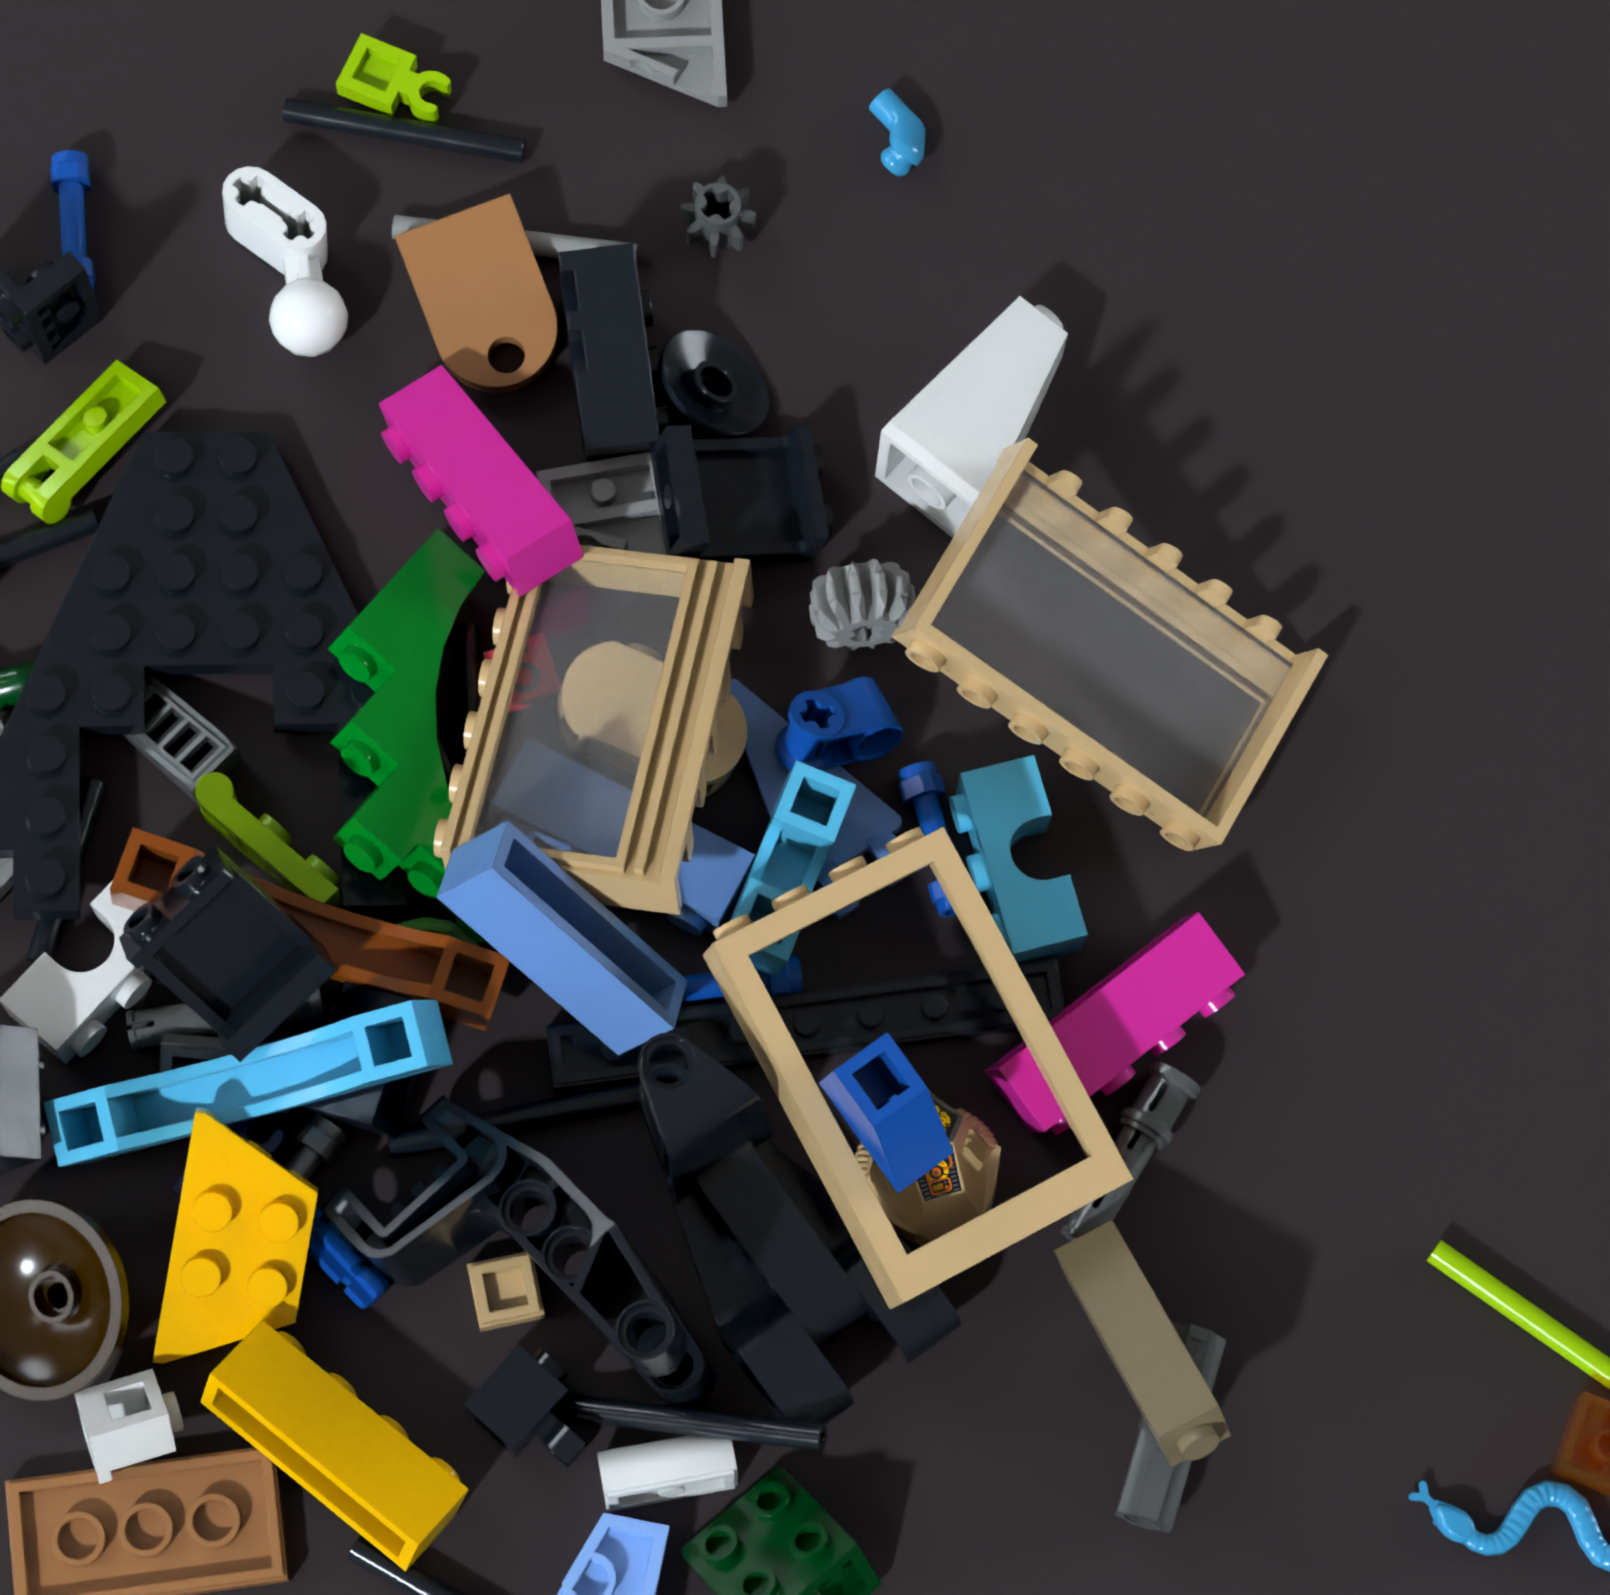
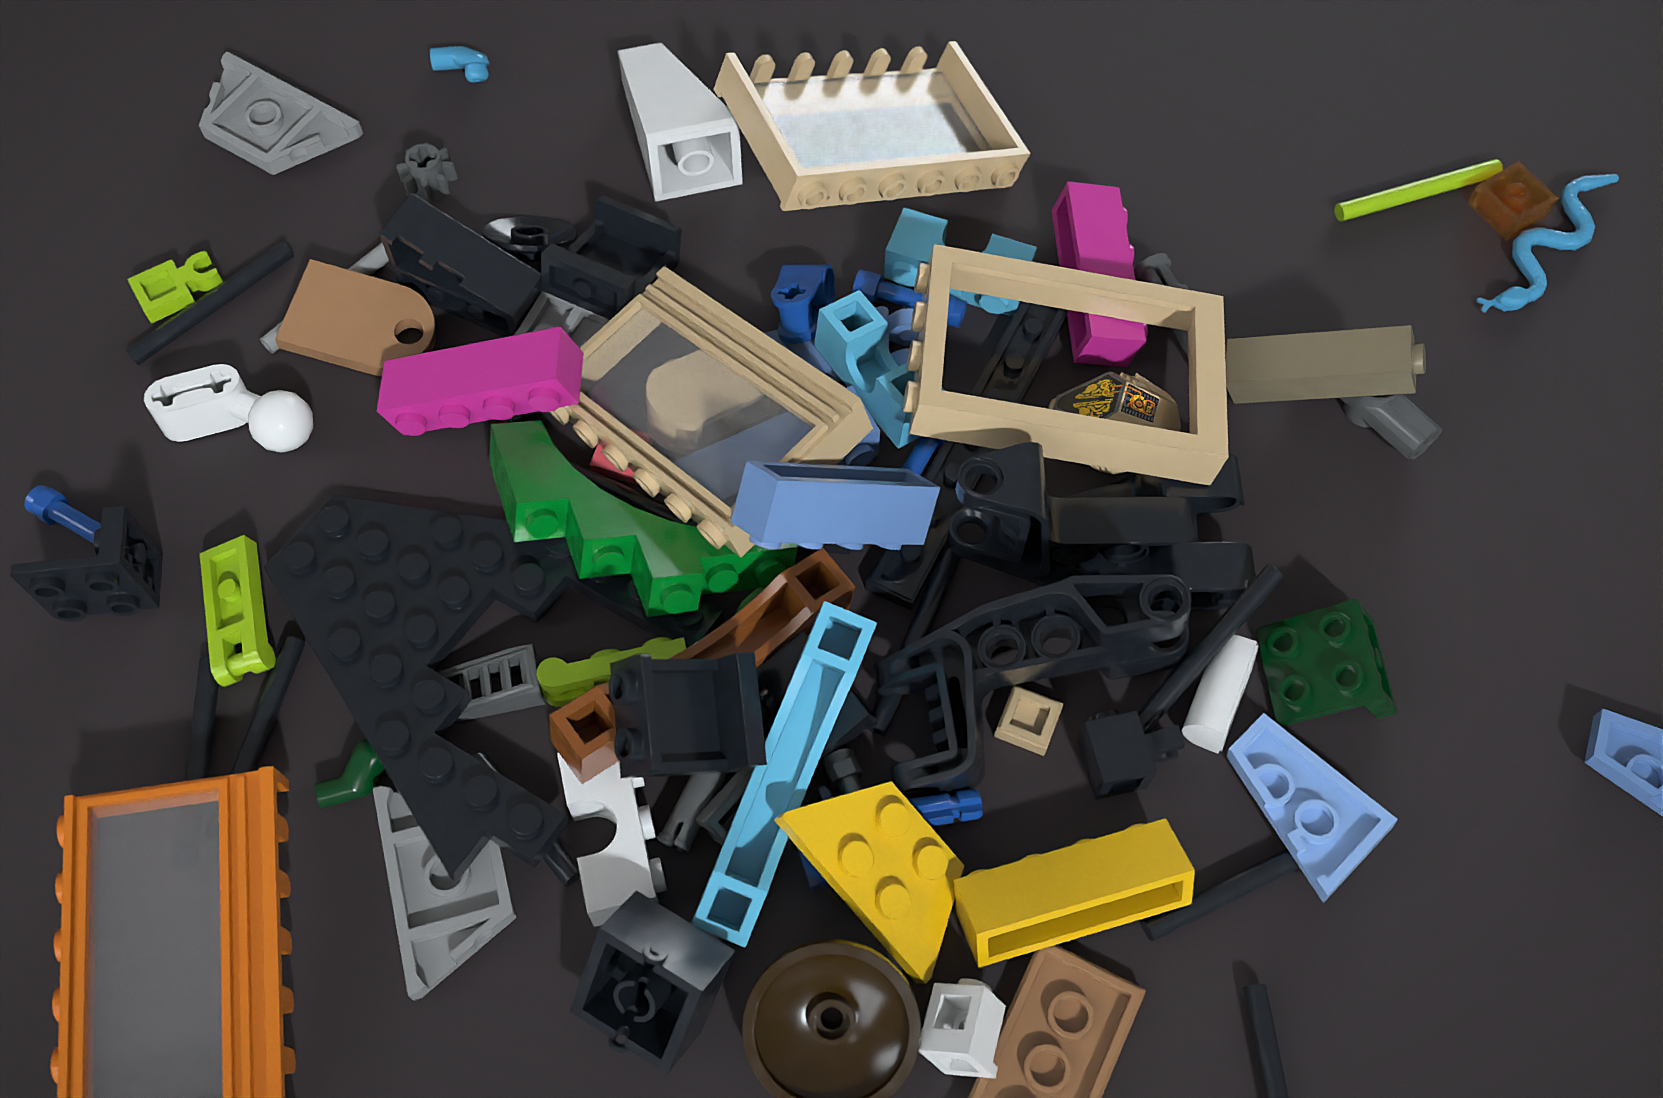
camera: 50 degrees left, 10 degrees down
(860, 604) = (737, 238): light grey gear -> none
(889, 1111) = (1101, 371): blue slope -> none

